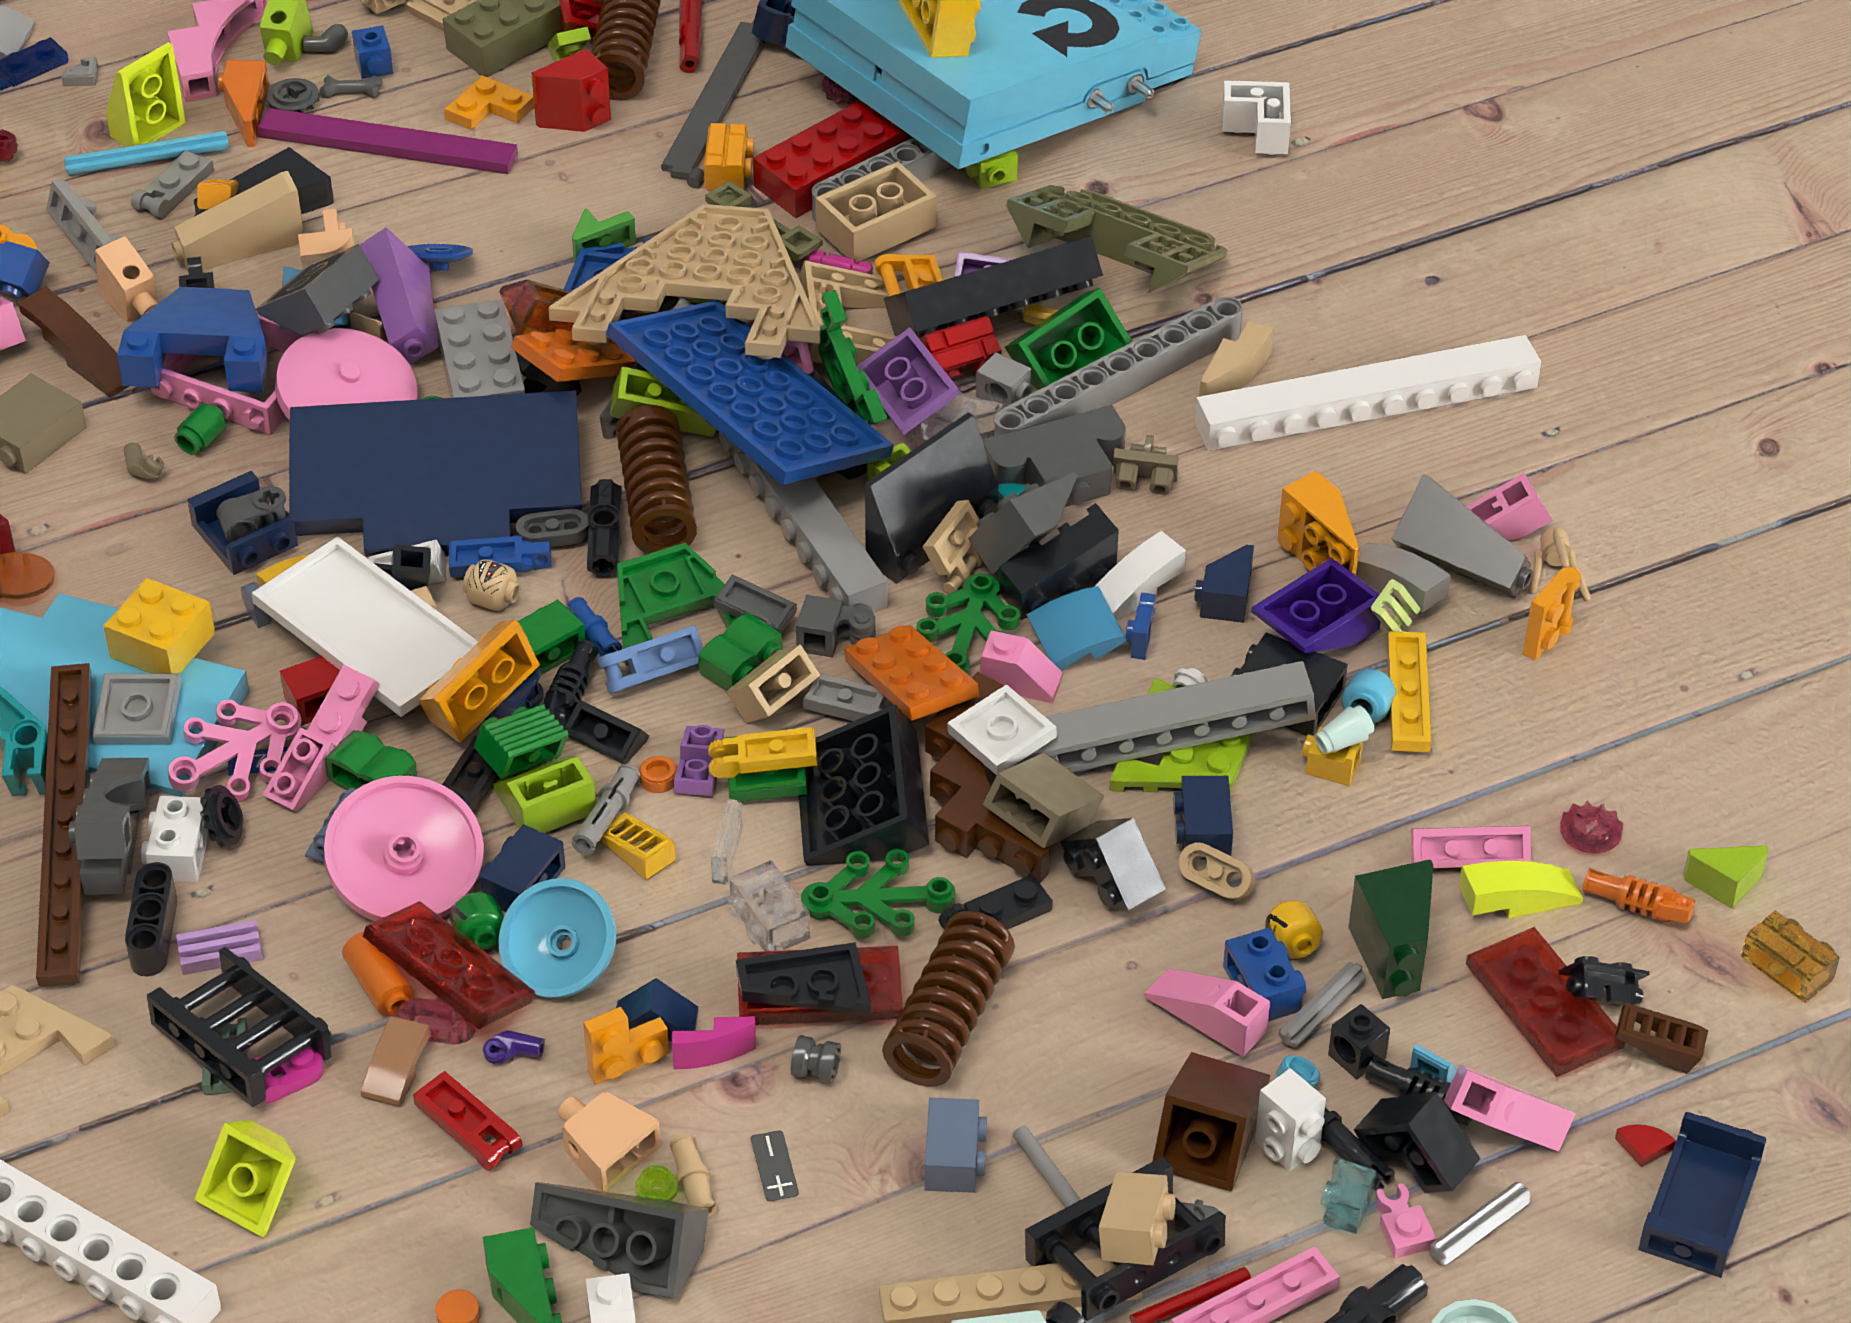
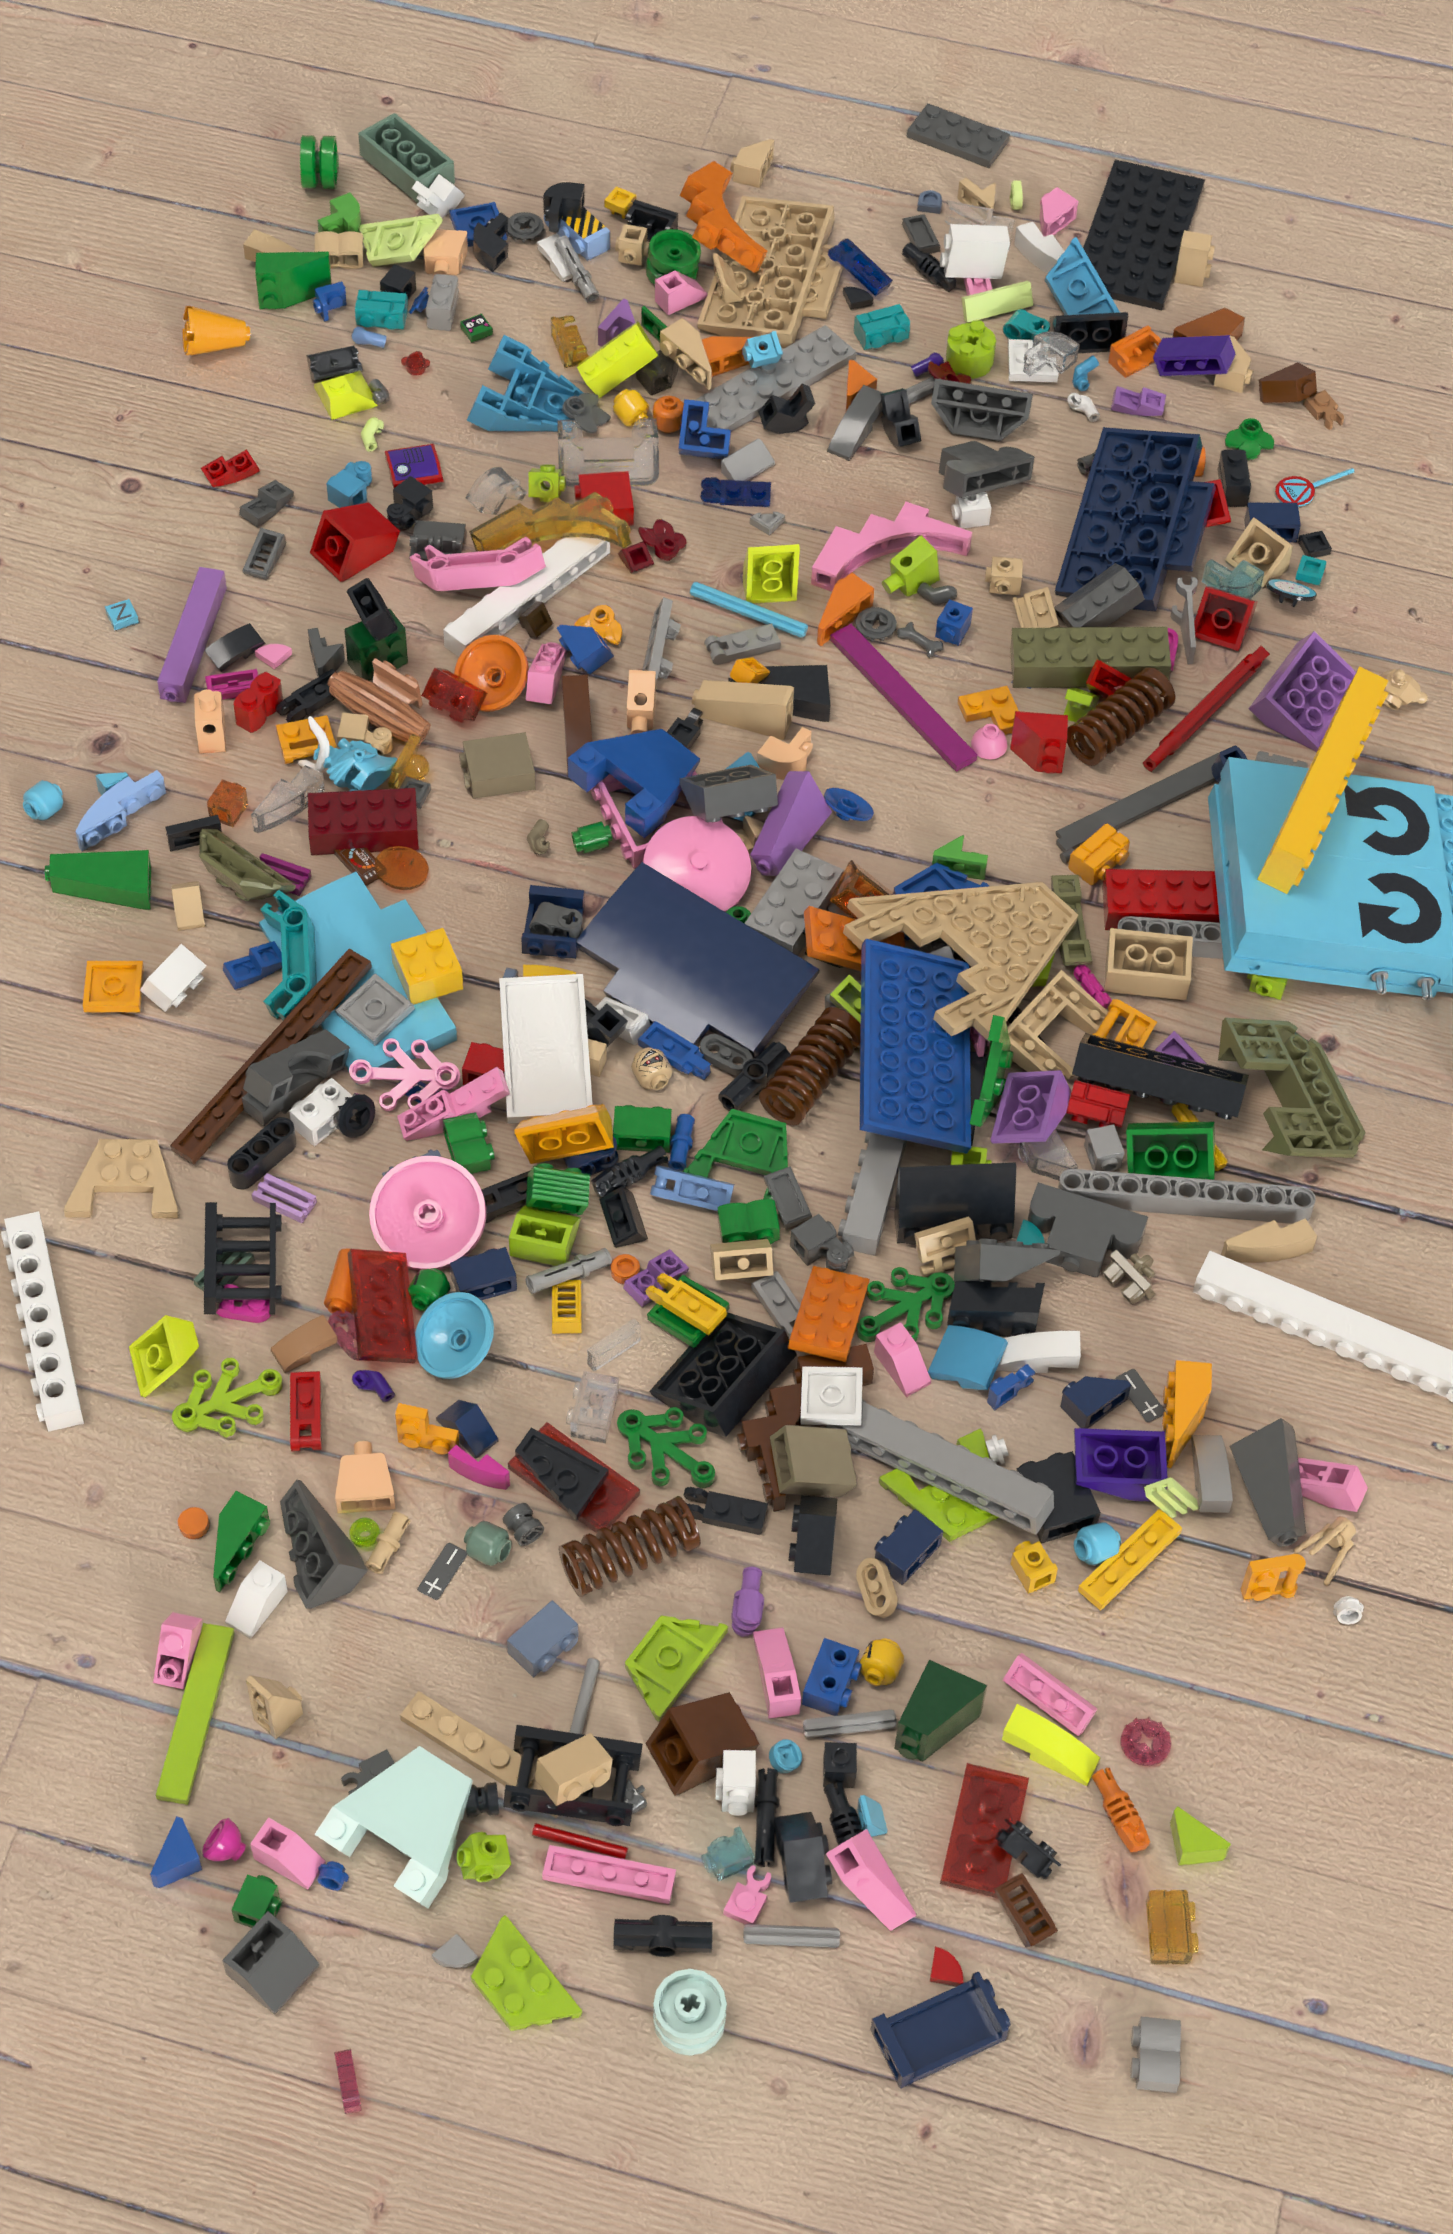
camera: 40 degrees right, 10 degrees up
(366, 1174) = (223, 1401): none -> lime plant
(516, 127) = (989, 742): none -> bright pink brick
(800, 1100) = (487, 1543): none -> sand green head
(1095, 1074) = (670, 1659): none -> lime wing
(1113, 970) = (748, 1603): none -> medium lavender arm
(1268, 562) = (1142, 1396): none -> dark grey sticker
(1346, 729) = (1040, 1557): light aqua cone -> none
(1633, 602) = (1348, 1610): none -> white plate

